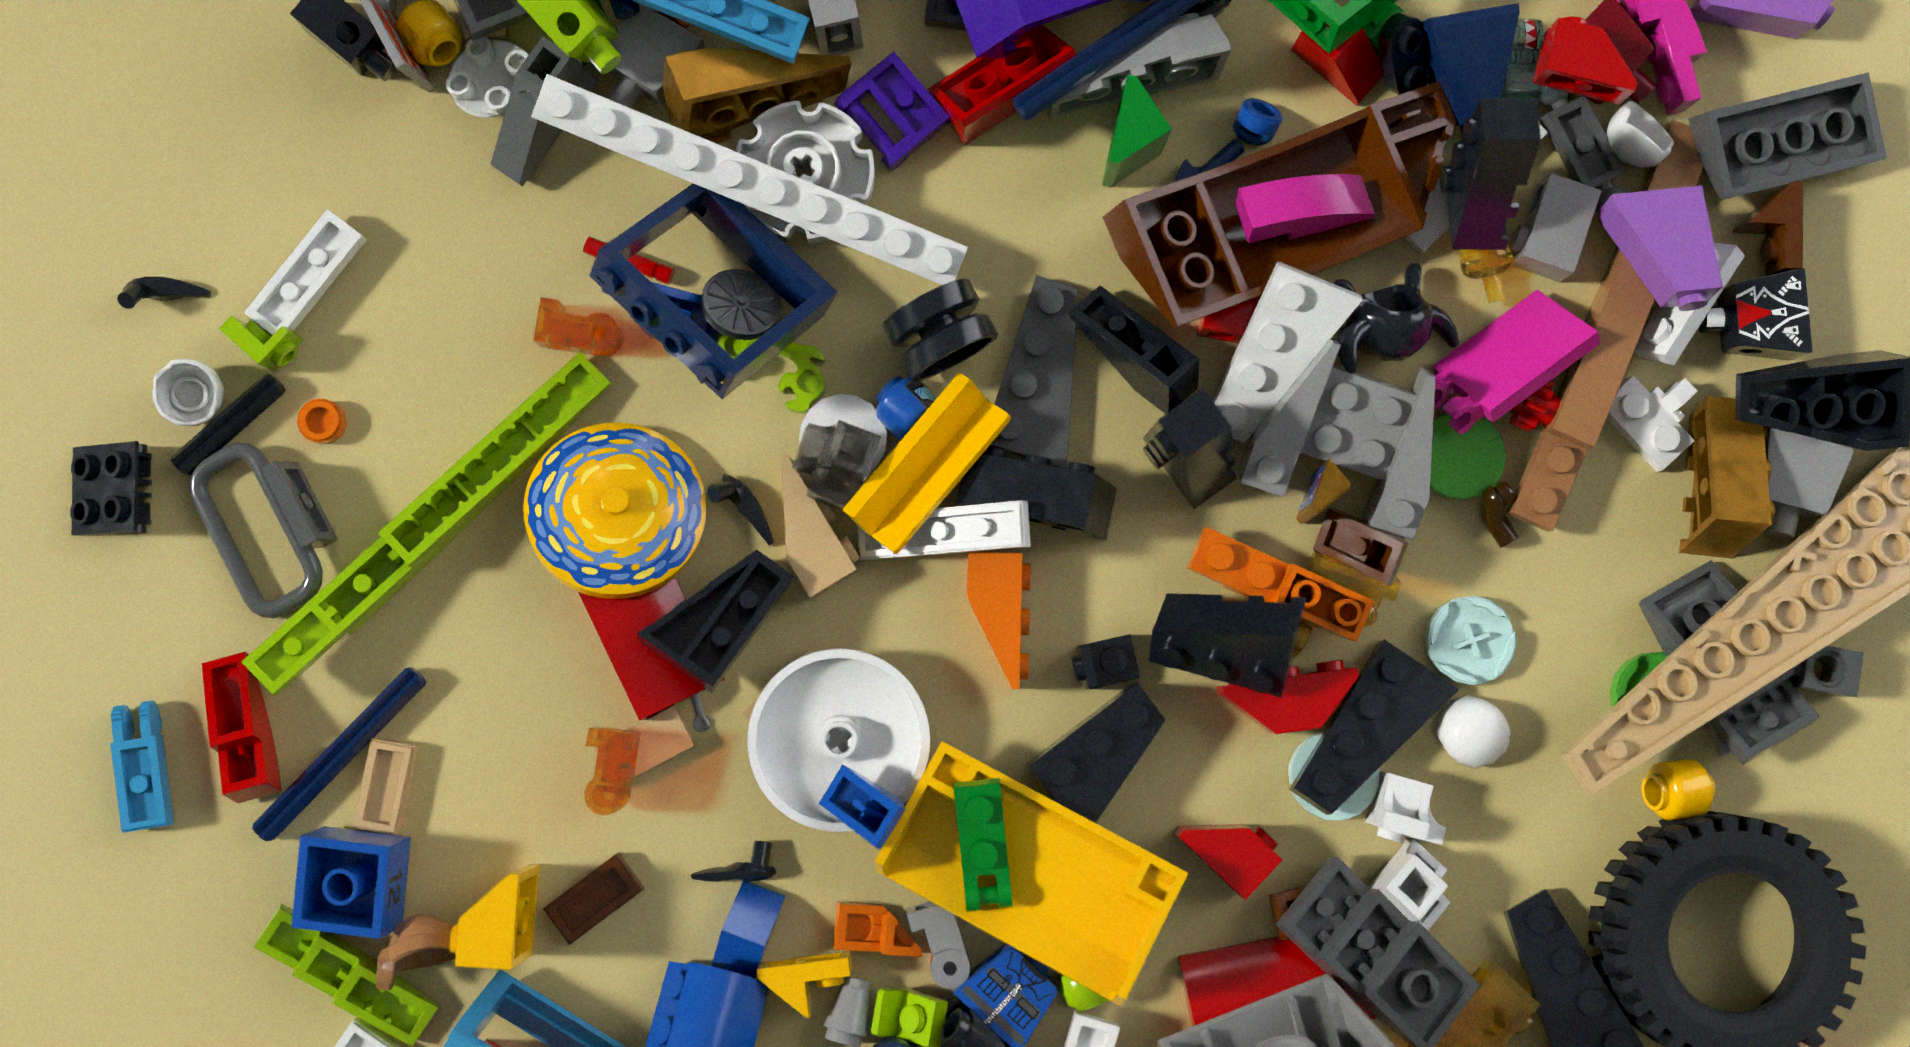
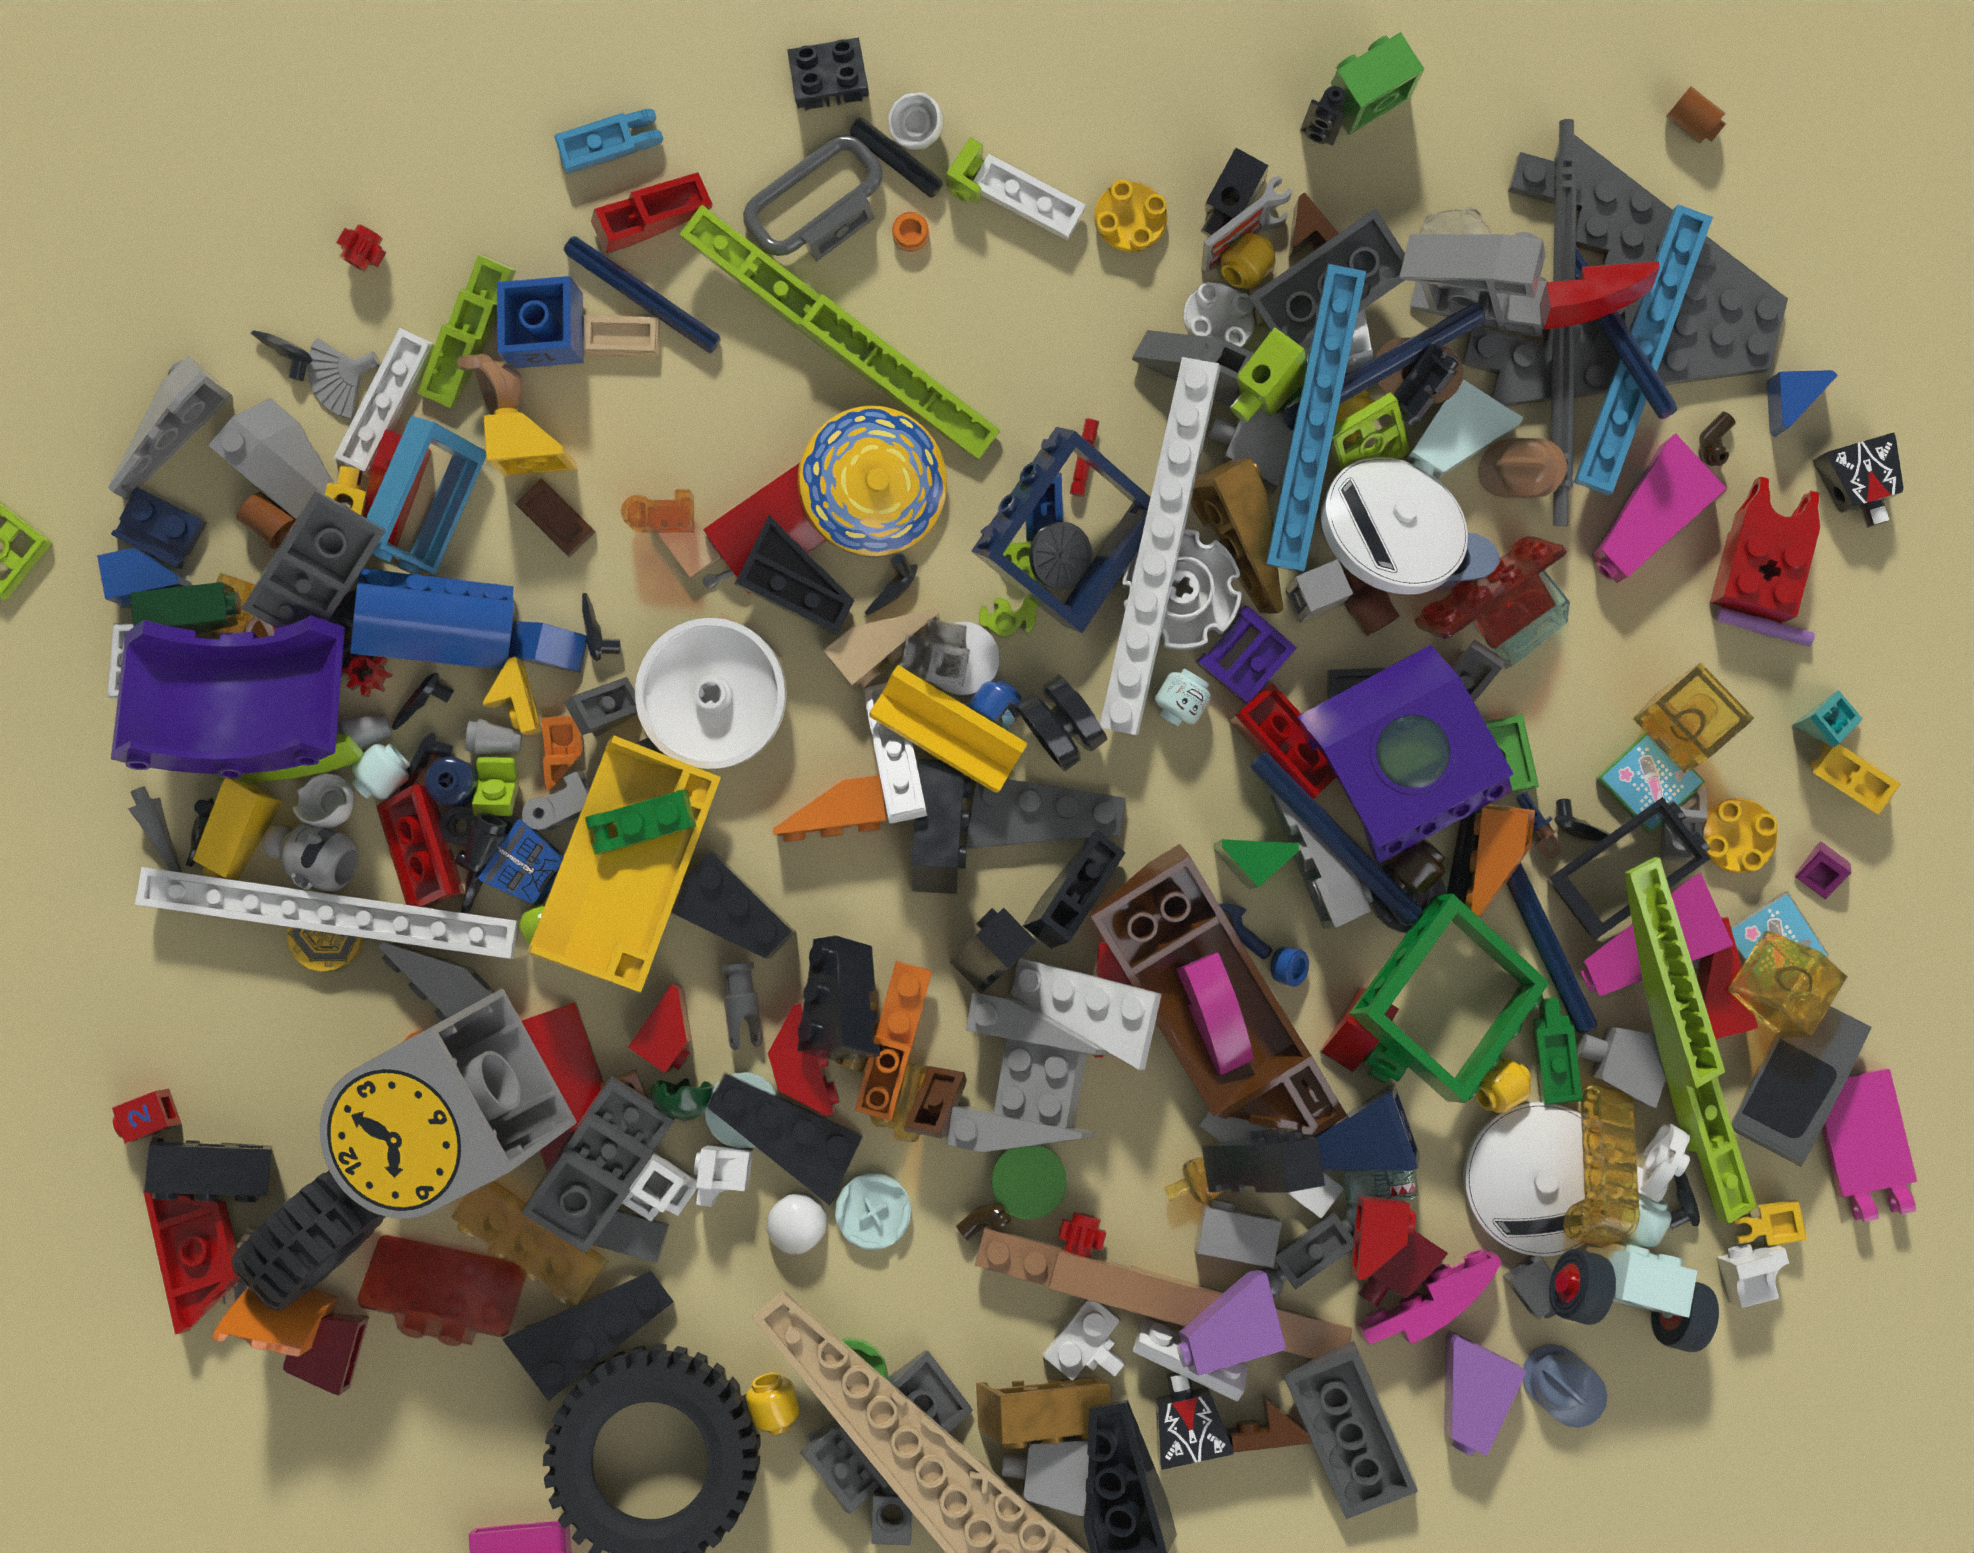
camera: 85 degrees right, 0 degrees up
(158, 289) = (999, 80): black bar -> none
(351, 160) = (1130, 216): none -> yellow dish
(561, 331) = (1015, 438): clear orange leg -> none
(833, 871) = (603, 707): none -> dark grey slope
(863, 806) = (658, 720): blue slope -> none
(931, 189) = (1183, 697): none -> light aqua head
(1105, 662) = (808, 905): black bracket -> none
(1209, 758) = (741, 1003): none -> dark grey piece
(1313, 845) = (681, 1100): none -> dark green hair
(1323, 489) = (975, 1064): pearl gold slope -> none
(1392, 322) = (1131, 1102): black piece -> none
(1403, 53) = (1364, 1081): black plate -> none
(1464, 924) = (633, 1236): none -> dark grey tile
(1510, 360) = (1112, 1206): dark pink tile -> none
(1638, 137) = (1329, 1297): white hair -> none

